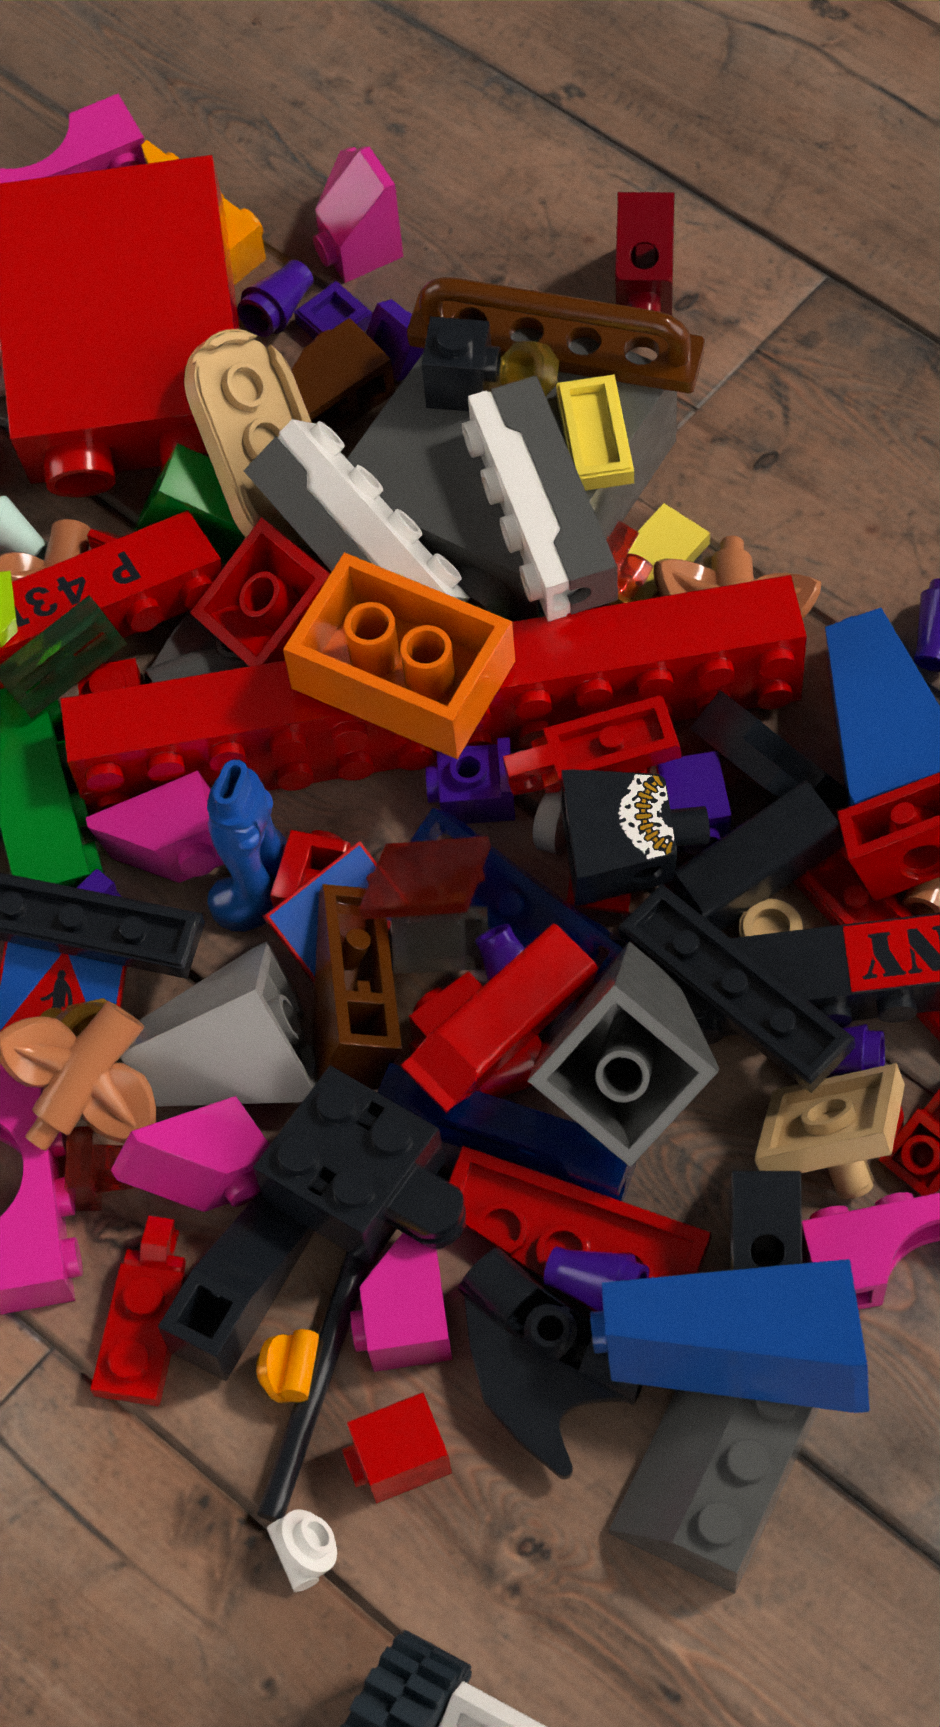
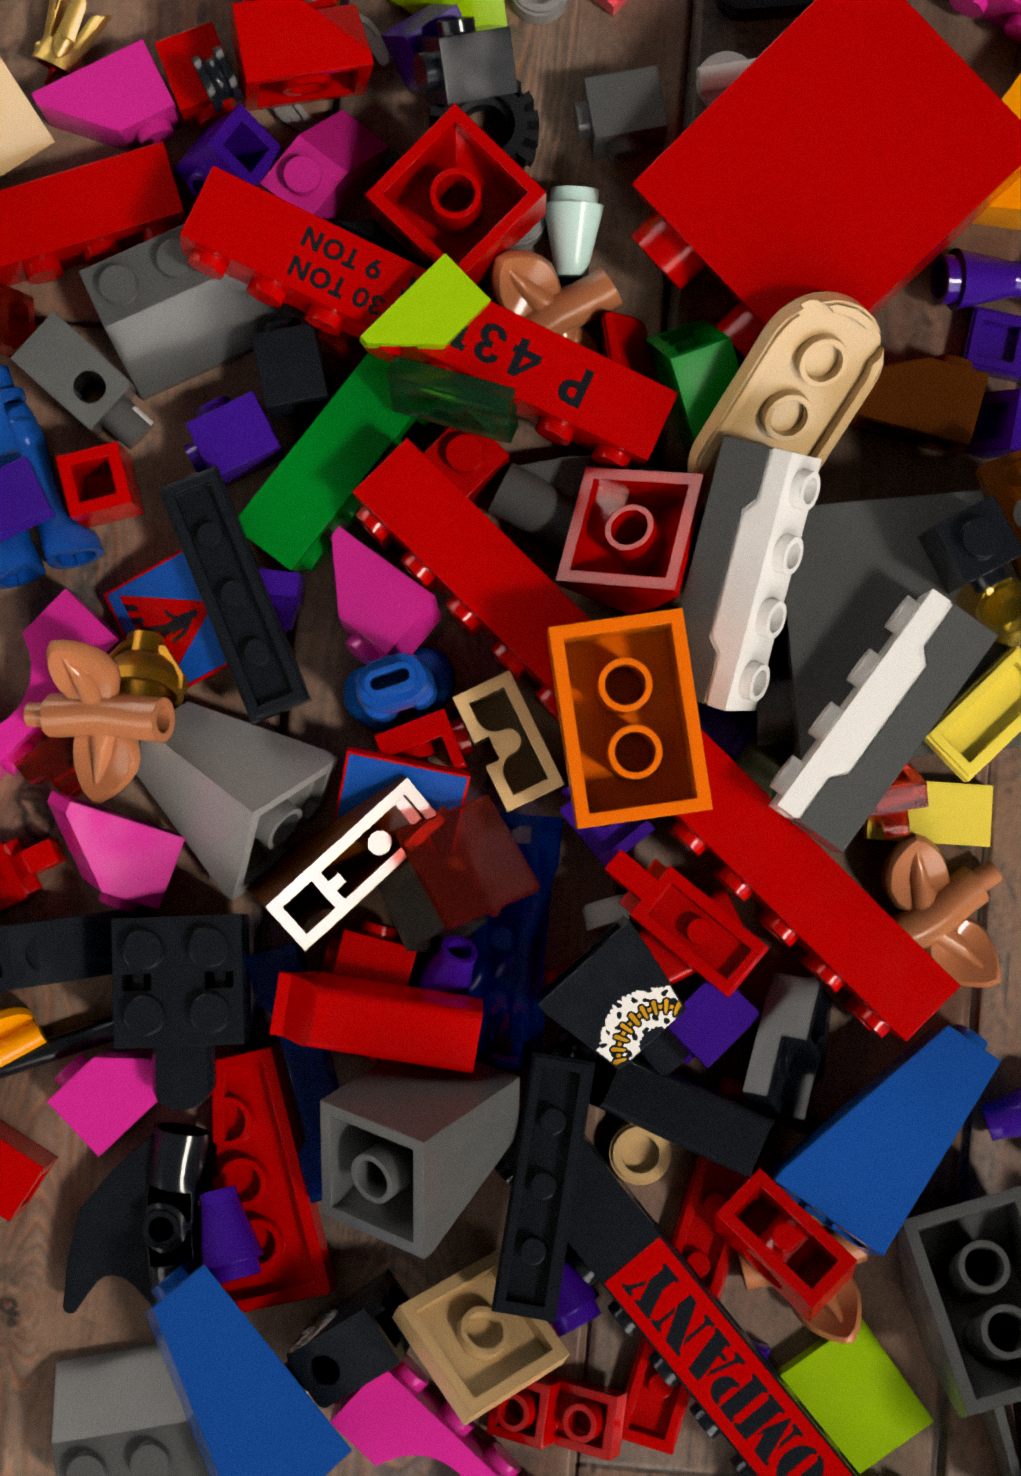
camera: 45 degrees right, 25 degrees up
(356, 800) = (500, 715): none -> tan brick

